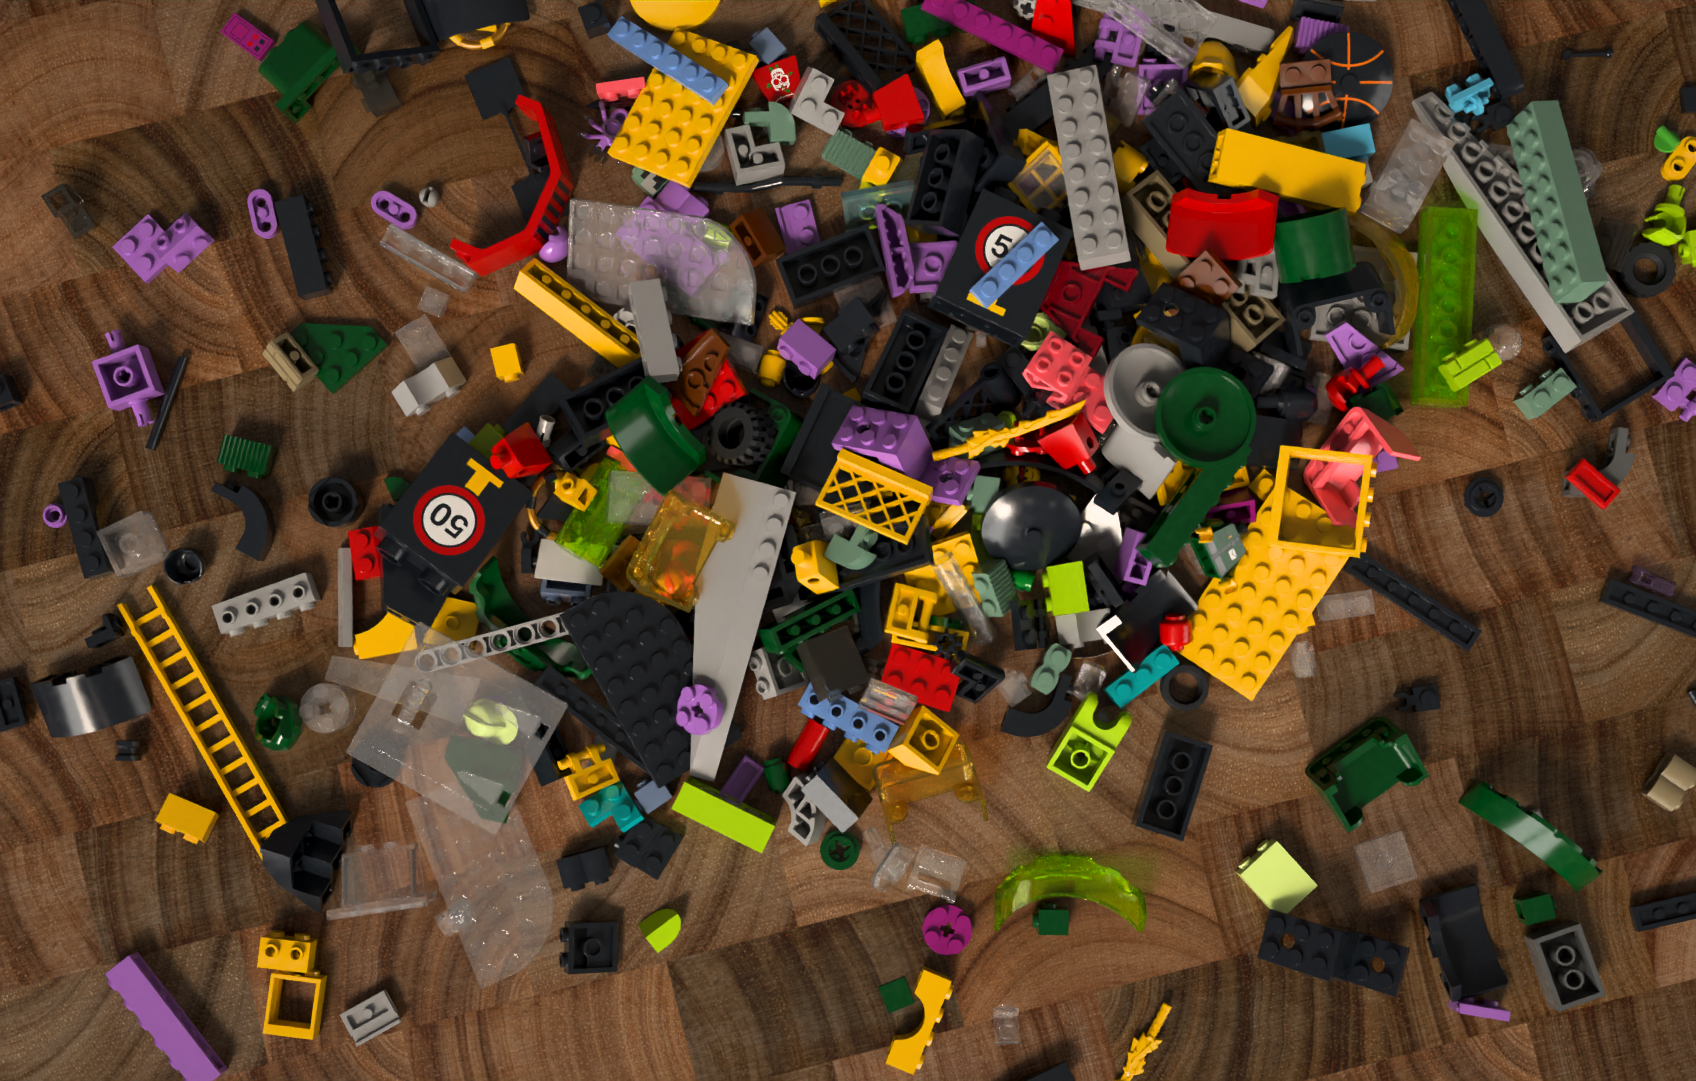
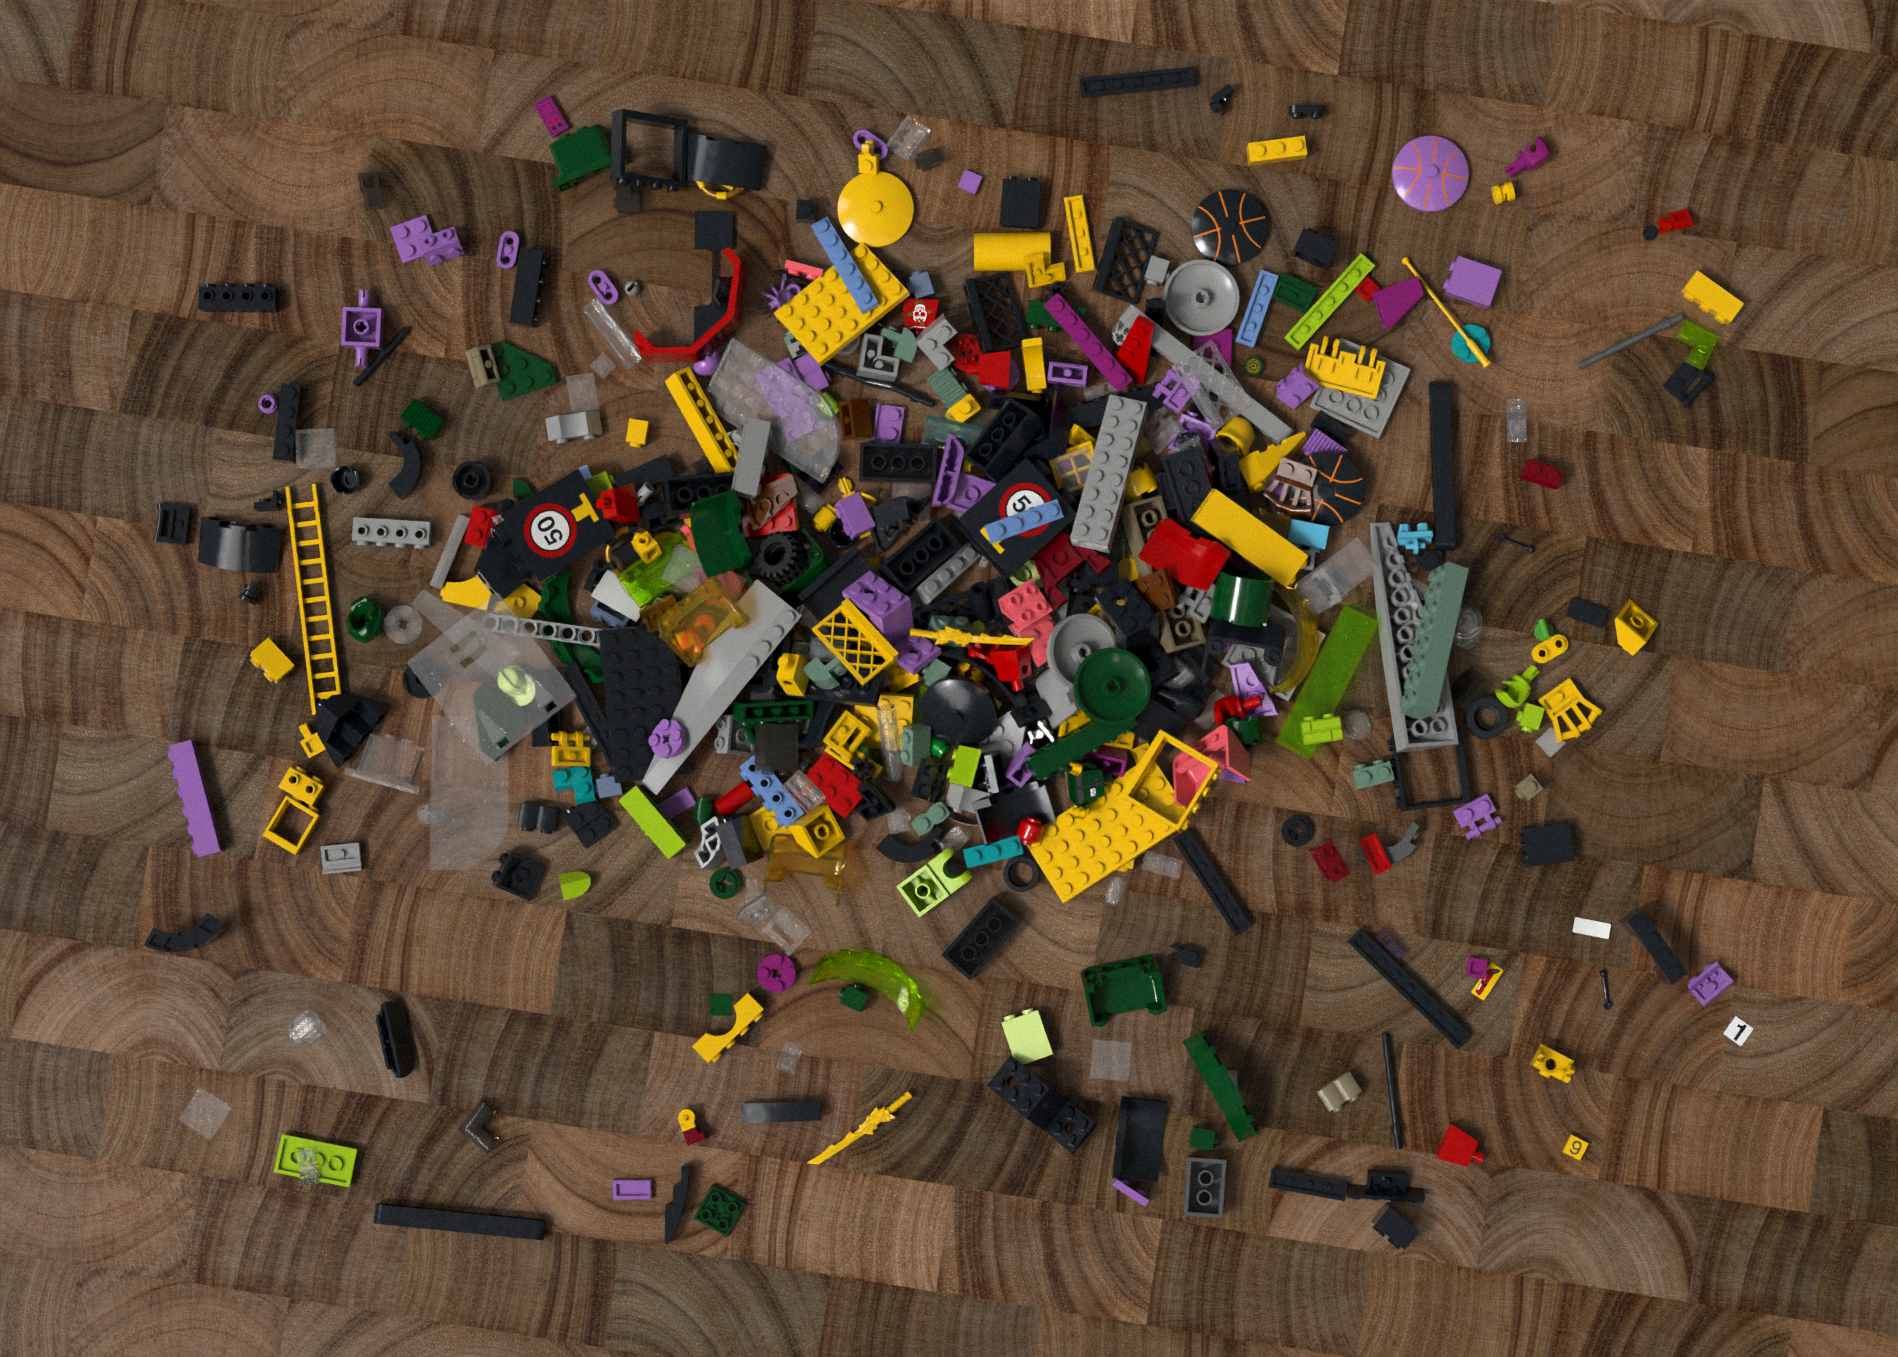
camera: 25 degrees right, 0 degrees up
(276, 896) = (312, 742): none -> yellow plate
(1565, 517) = (1329, 861): none -> dark red door

